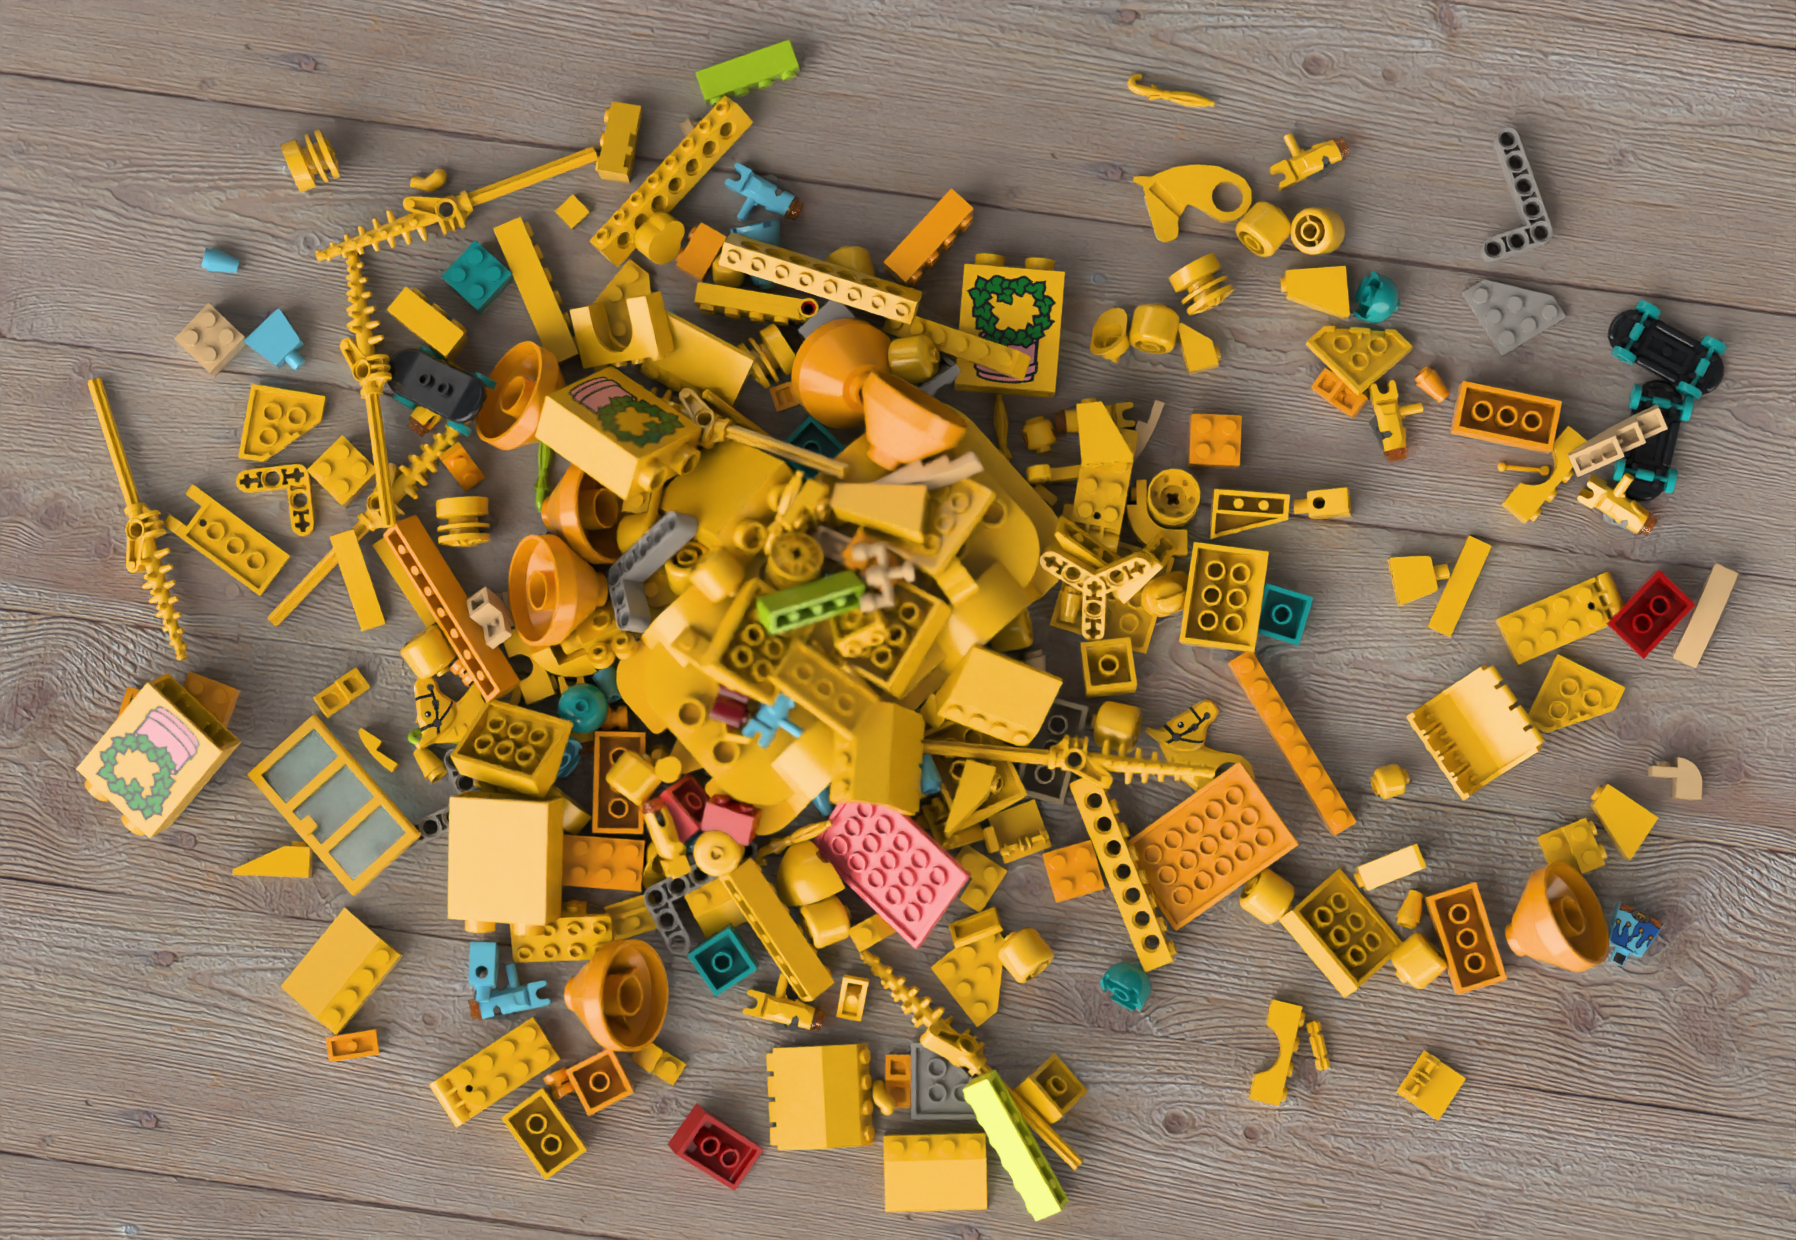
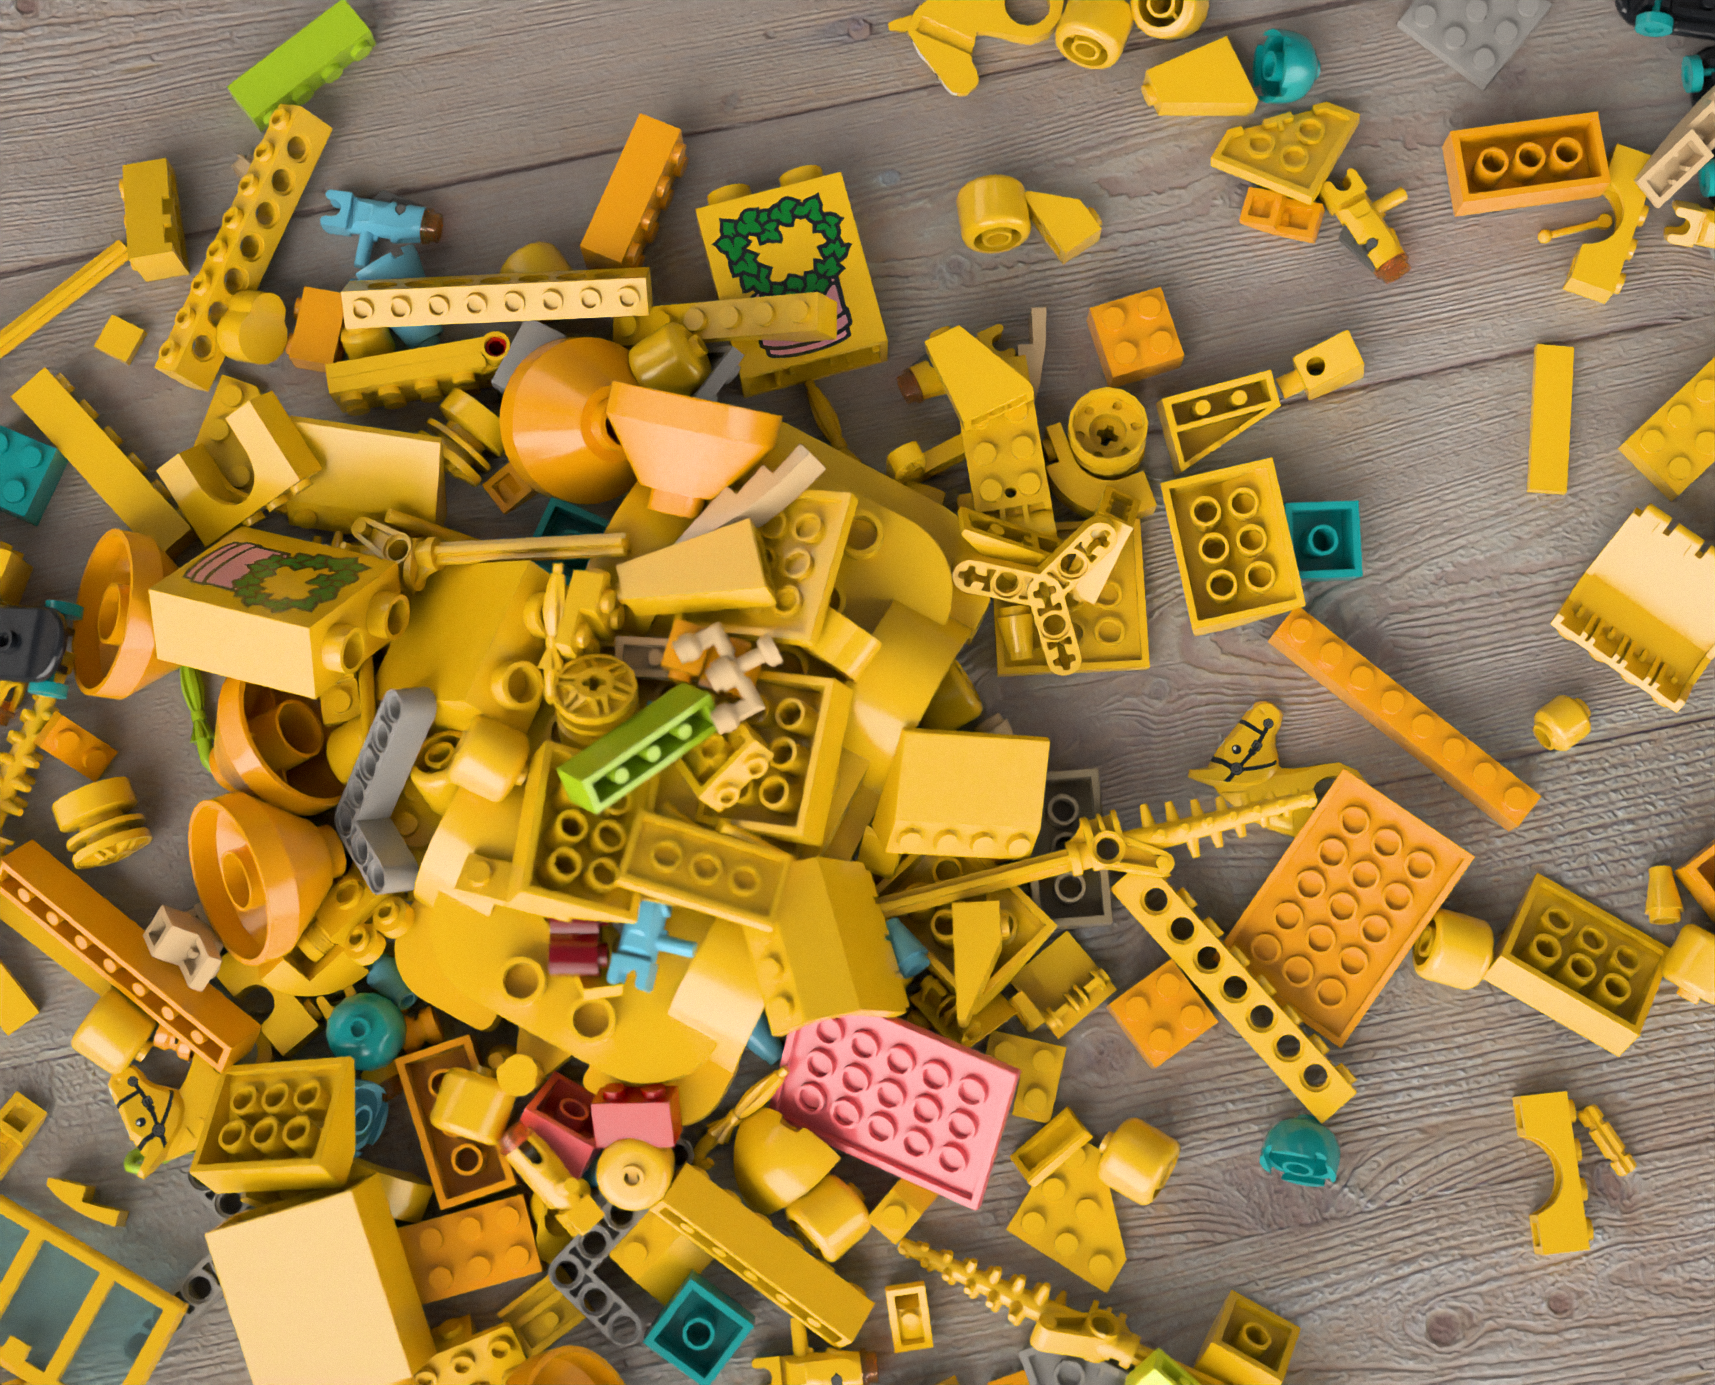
camera: 20 degrees left, 5 degrees down
(430, 765) = (171, 1195): yellow cone -> none
(1039, 434) = (885, 415): yellow head -> none
(1108, 667) = (1104, 704): yellow slope -> none
(1110, 335) = (936, 244): yellow piece -> none
(1118, 724) = (1147, 777): yellow head -> none
(1165, 594) = (1146, 572): yellow piece -> none
(1201, 284) = (1031, 125): yellow wheel -> none
(1389, 867) = (1613, 844): yellow slope -> none
(1415, 577) = (1485, 427): yellow torso -> none
(1431, 383) = (1404, 156): light orange cone -> none

